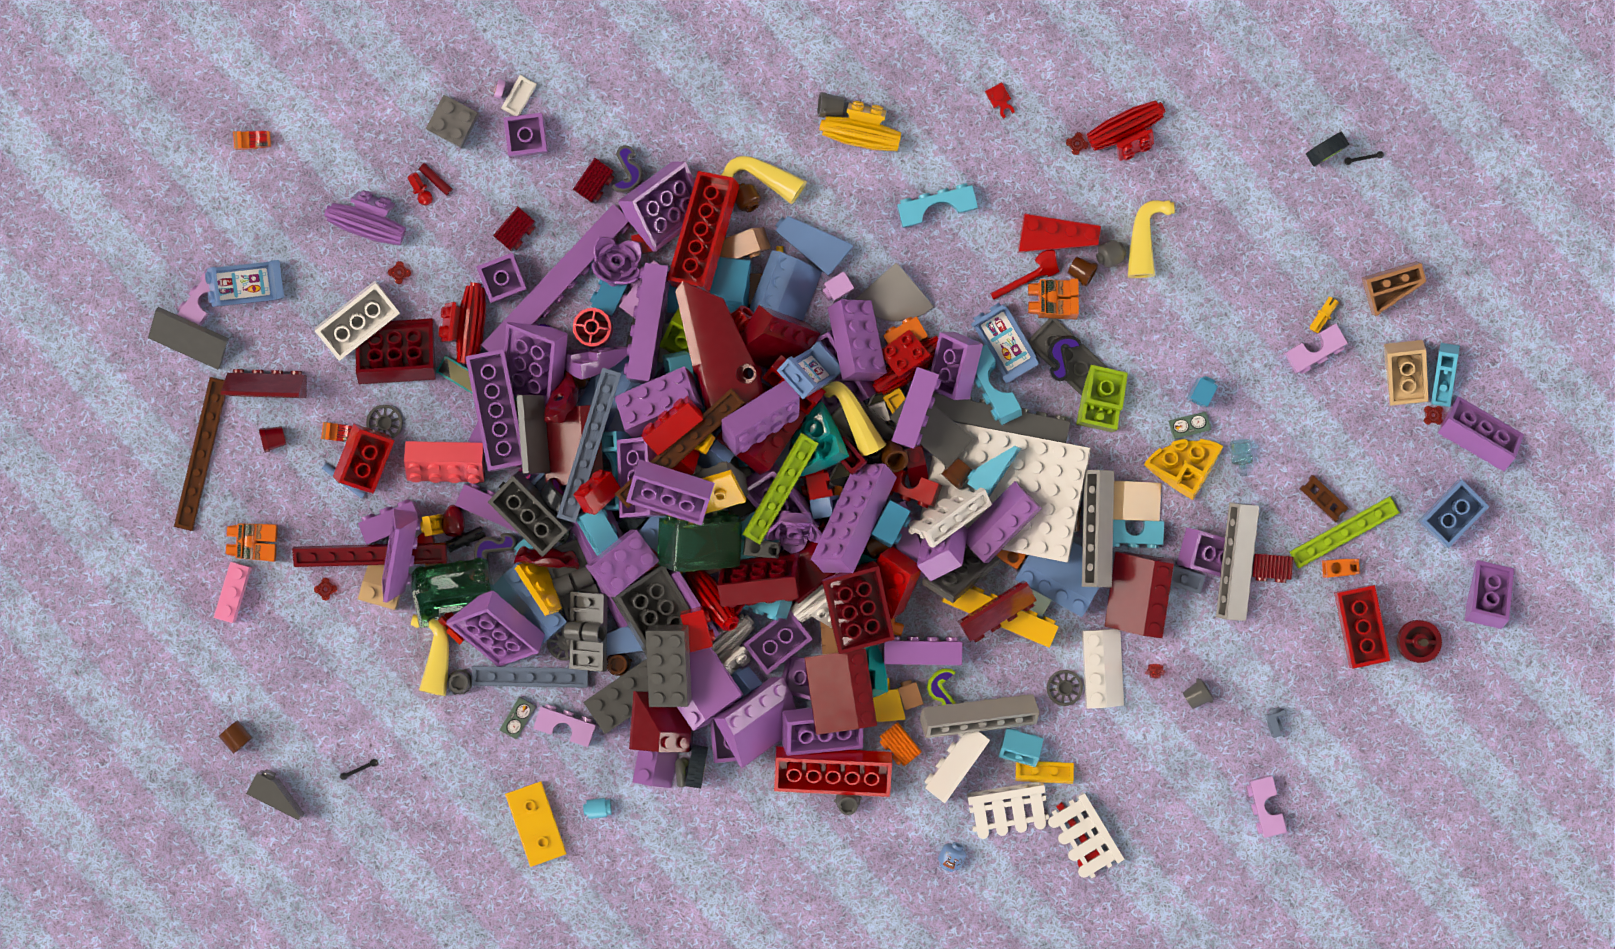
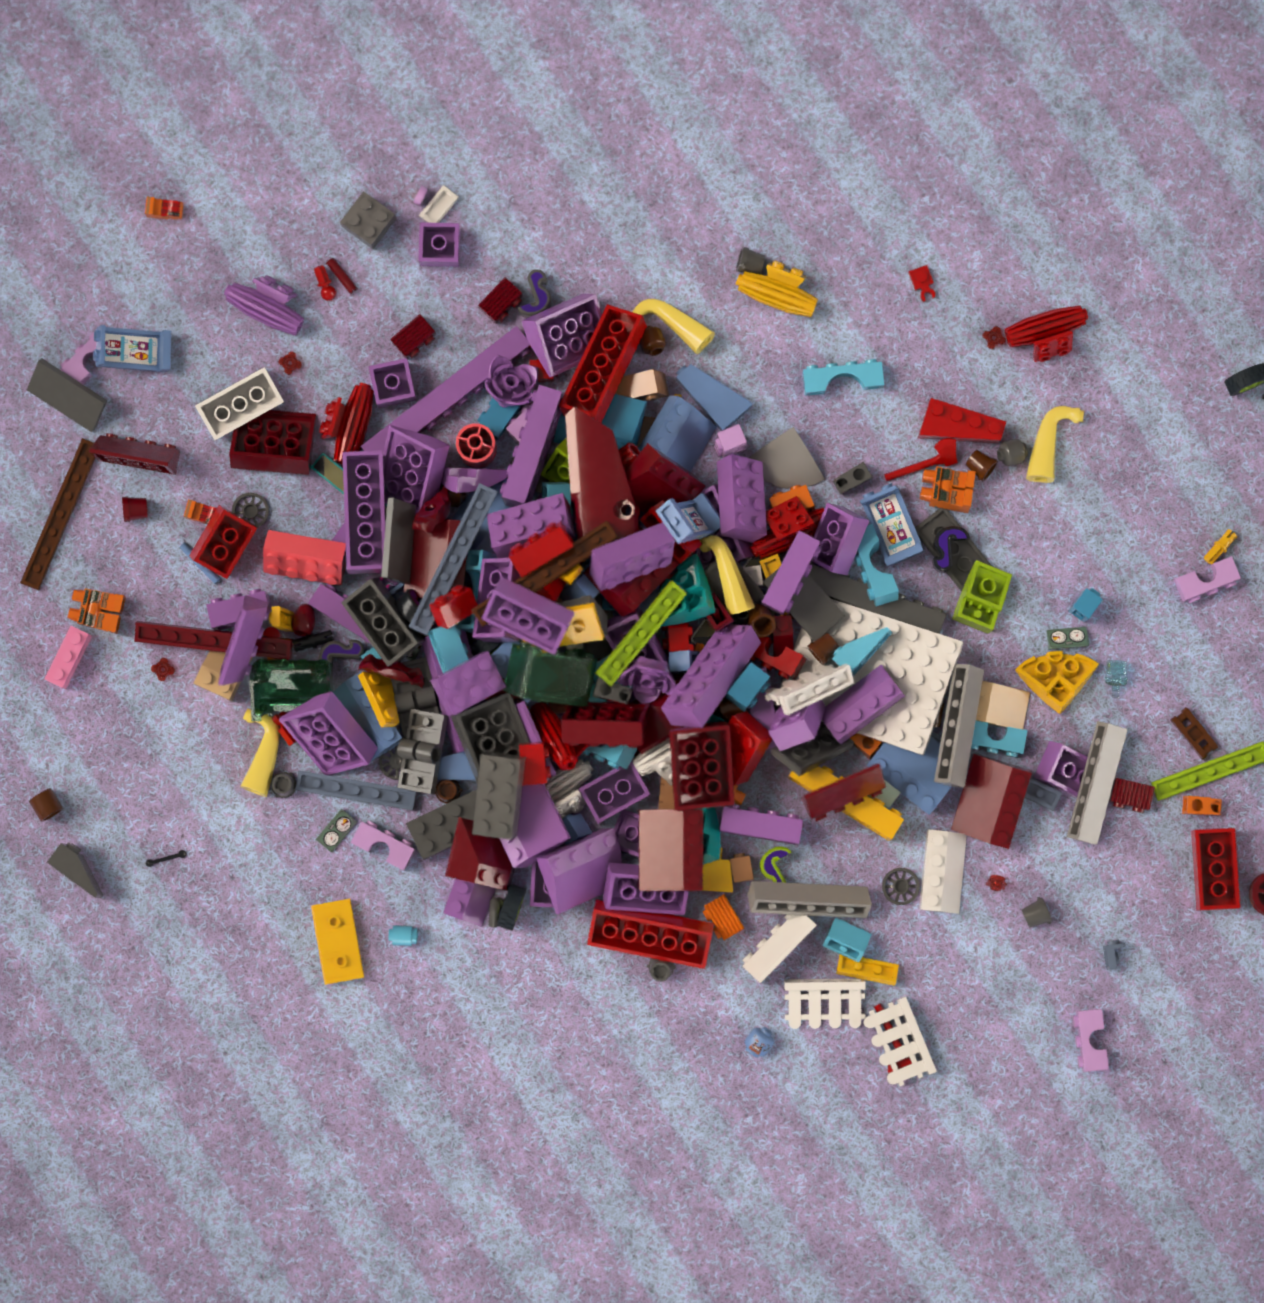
camera: 15 degrees right, 5 degrees down
(960, 302) = (852, 478): none -> dark grey leg

